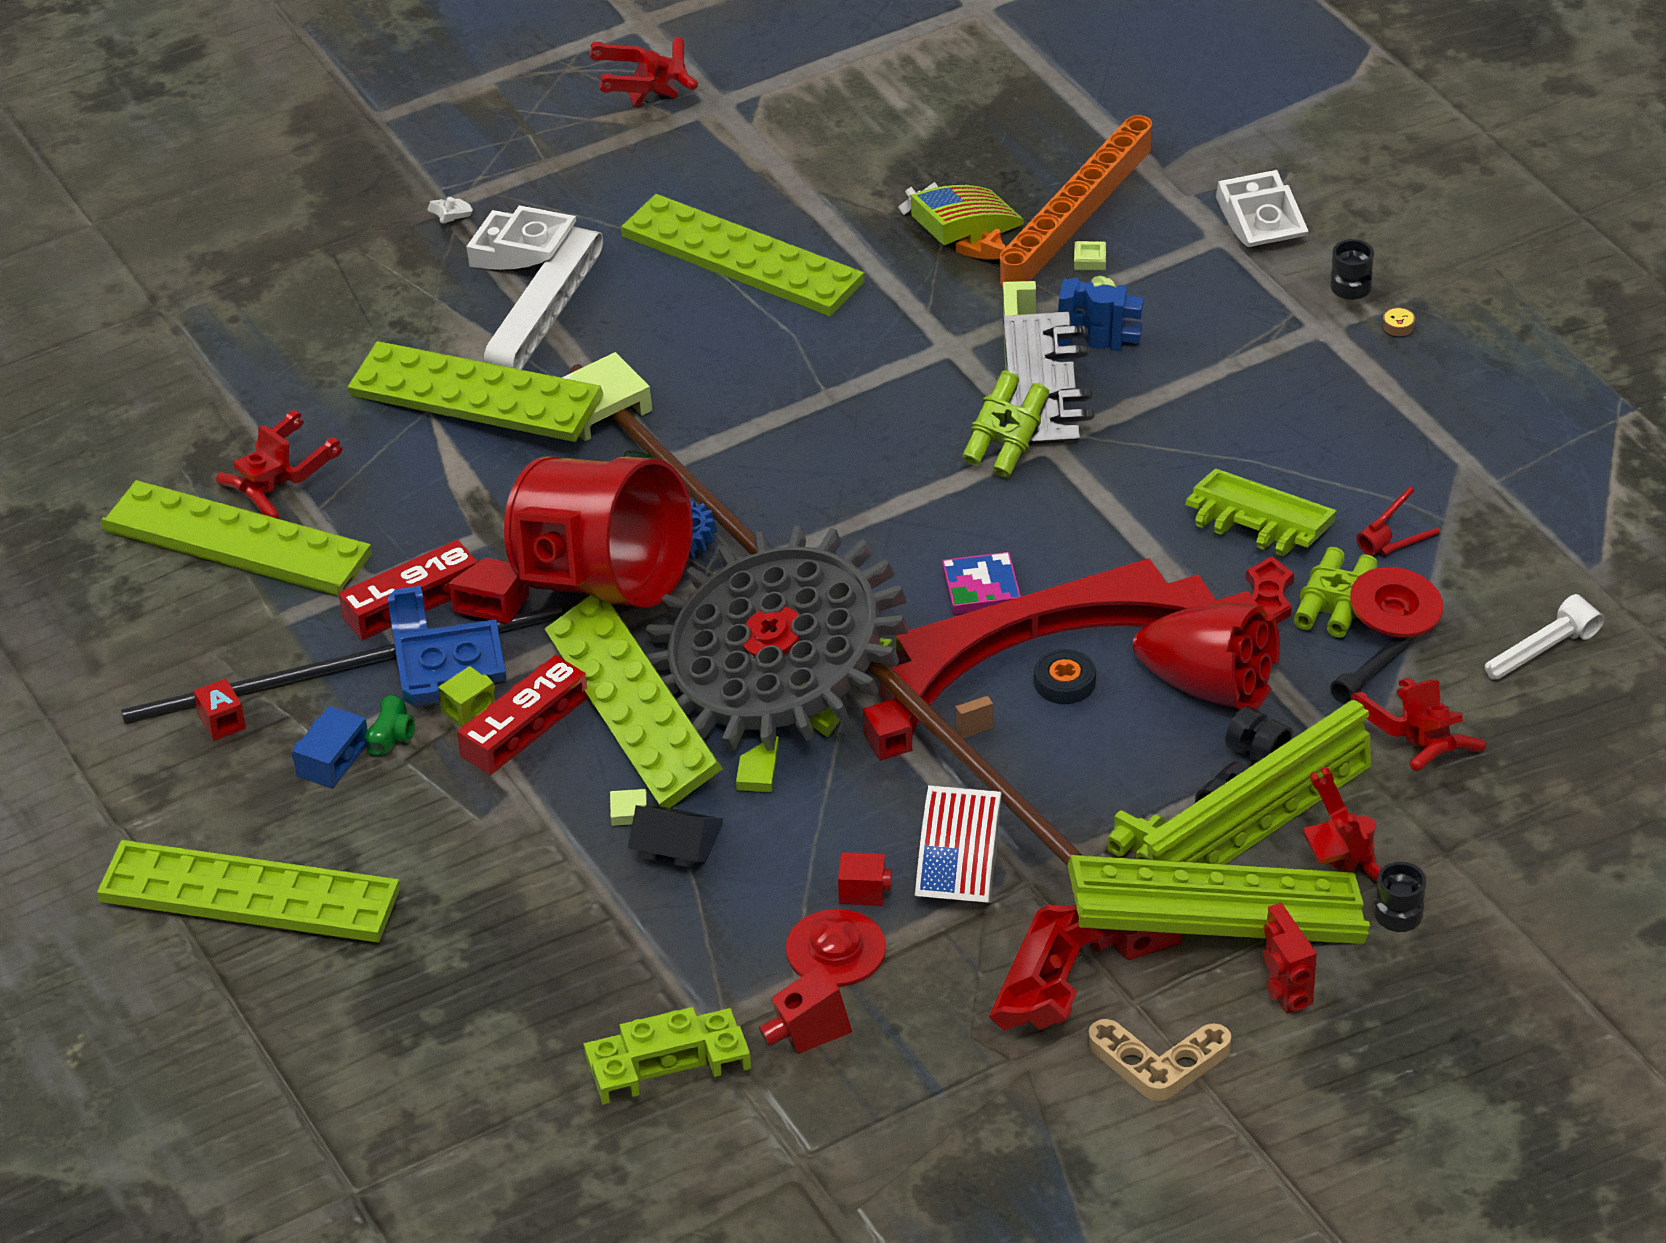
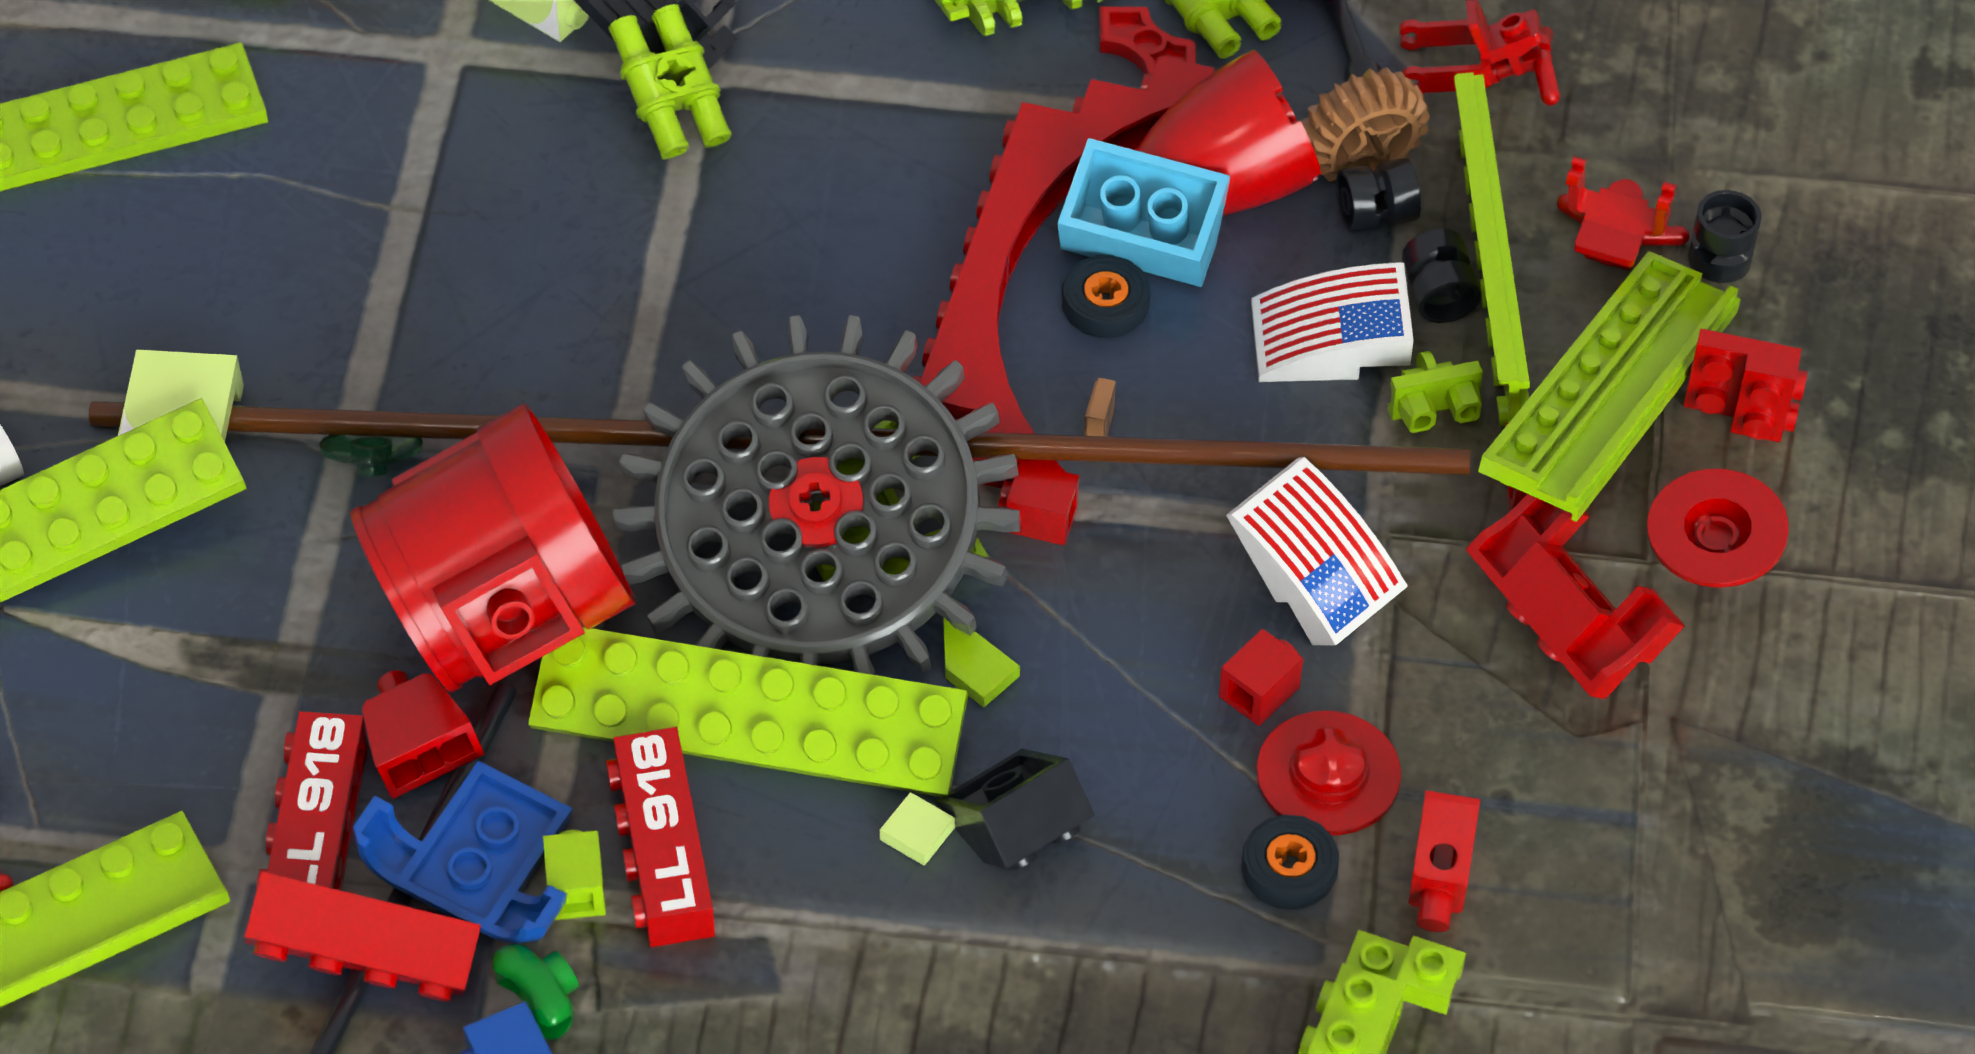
camera: 55 degrees left, 10 degrees up
(346, 638) = (362, 935): none -> brick
(758, 946) = (1310, 876): none -> black bush
(979, 581) = (878, 272): tile -> none
(1124, 647) = (1144, 211): none -> medium azure slope
(1146, 774) = (1333, 324): none -> white slope
(1163, 1067) = (1778, 594): tan beam -> none
(1169, 1006) = (1717, 528): none -> red hat
(1292, 693) = (1366, 122): none -> medium nougat gear

